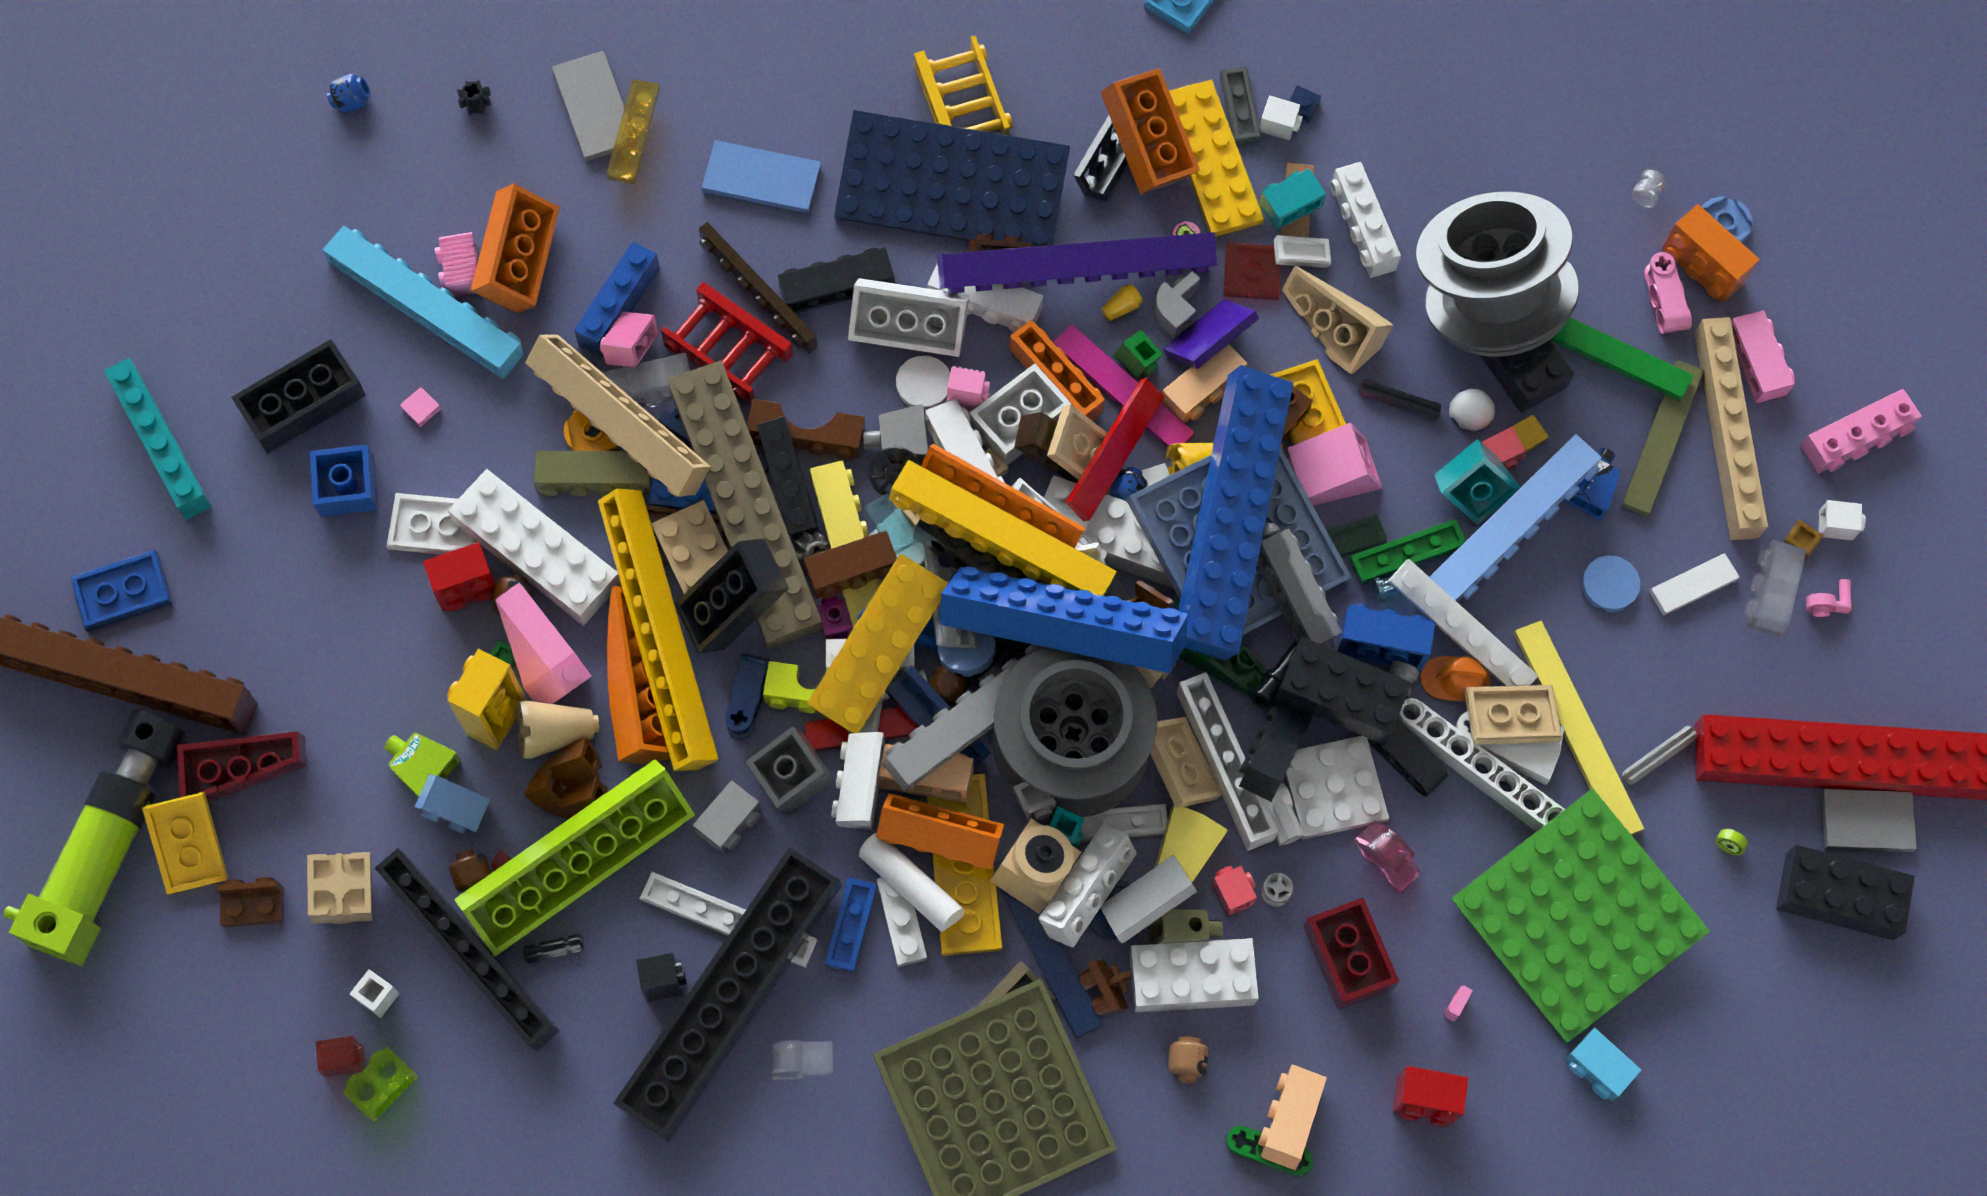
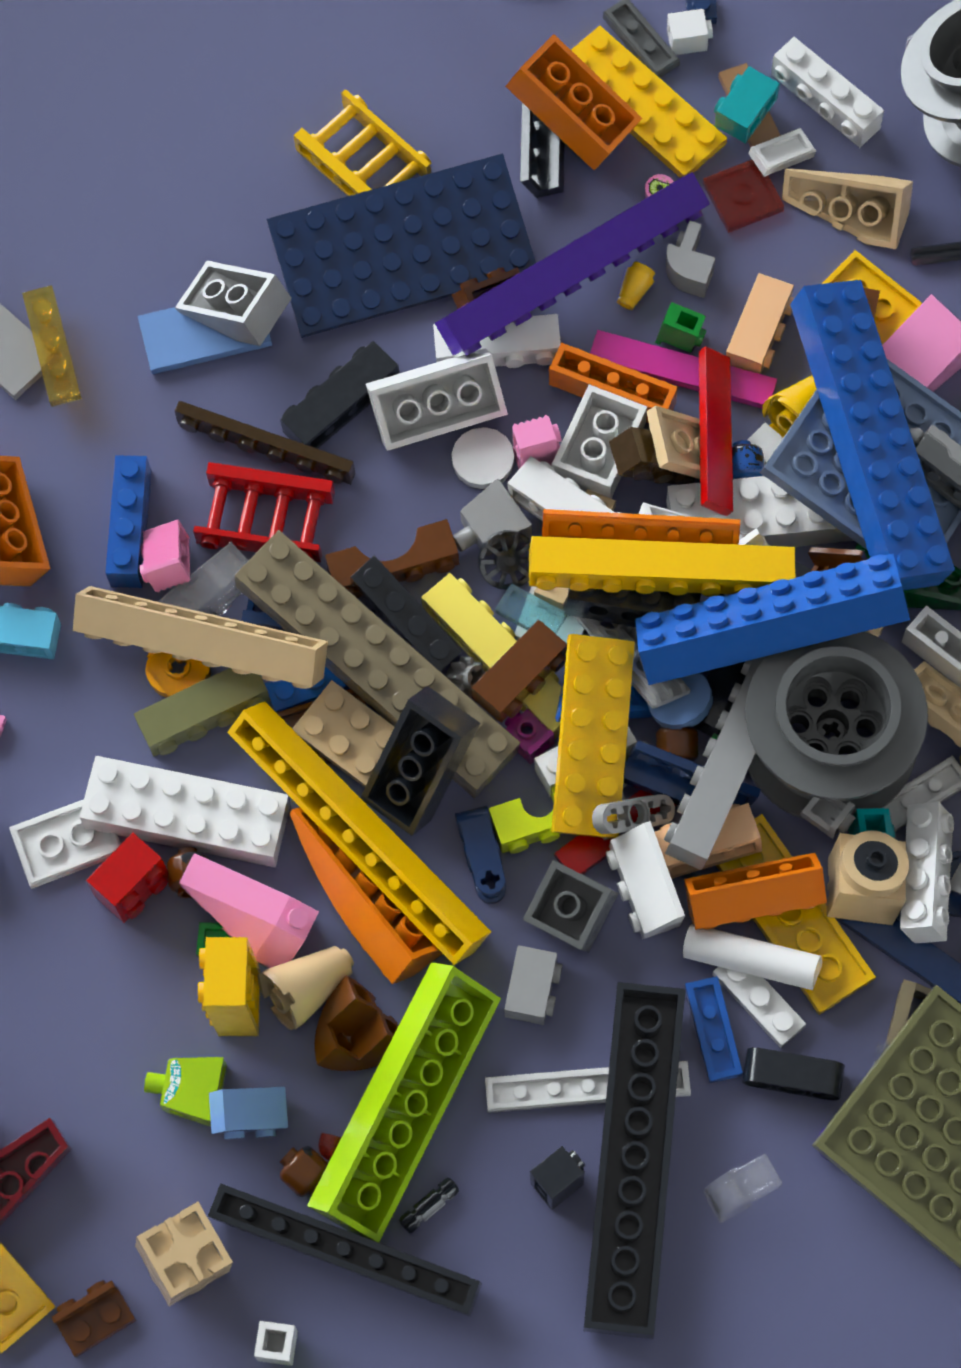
camera: 20 degrees left, 0 degrees up
(794, 164) = (235, 301): none -> light grey slope
(869, 713) = (622, 809): none -> light grey beam
(894, 991) = (793, 1073): none -> black beam
(1210, 333) = (741, 273): dark purple tile -> none

